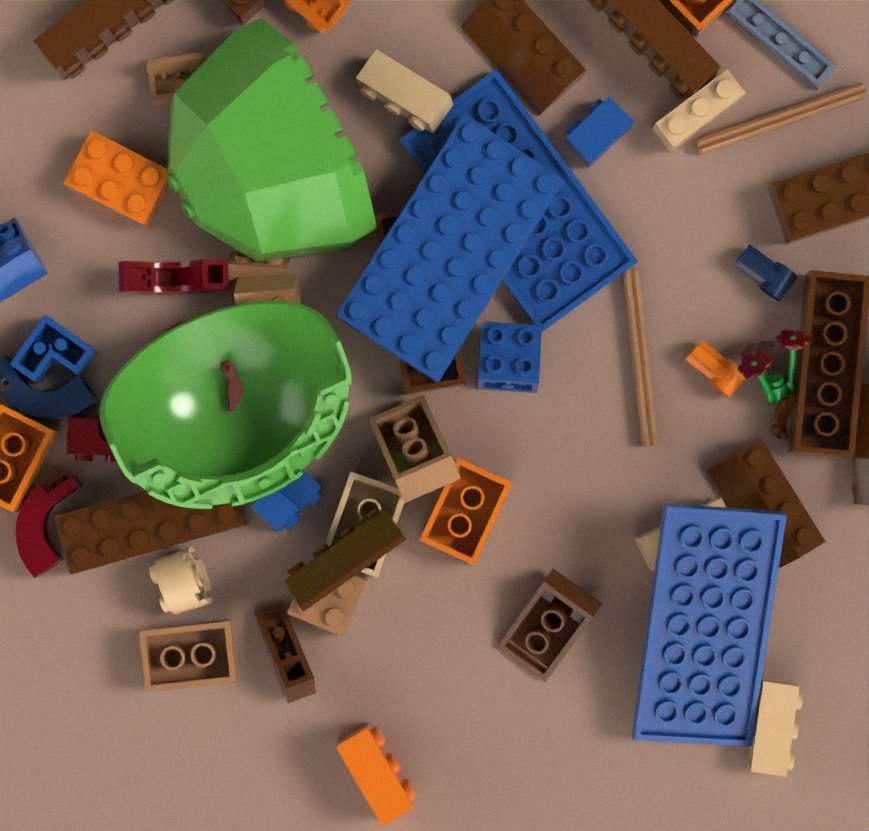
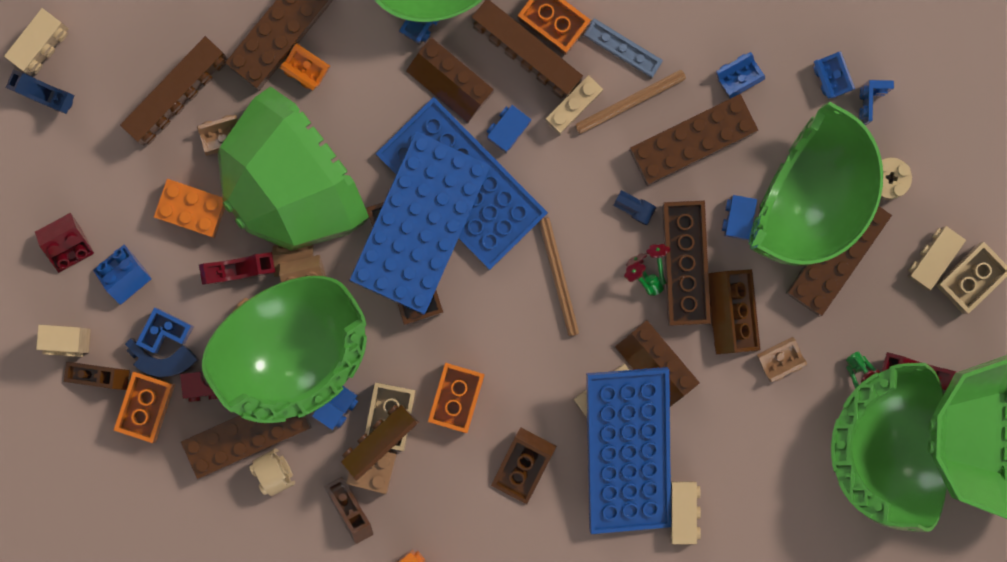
camera: 10 degrees left, 0 degrees up
(31, 525) = (166, 452): dark red arch -> none
(189, 655) = (284, 521): medium nougat brick -> none
(234, 387) = (288, 338): dark red piece -> none
(403, 92) = (373, 122): tan brick -> none
(414, 448) = (415, 361): medium nougat brick -> none
(509, 357) = (470, 289): blue bracket -> none
(721, 372) = (611, 277): orange piece -> none
(782, 413) = (659, 301): reddish brown piece -> none

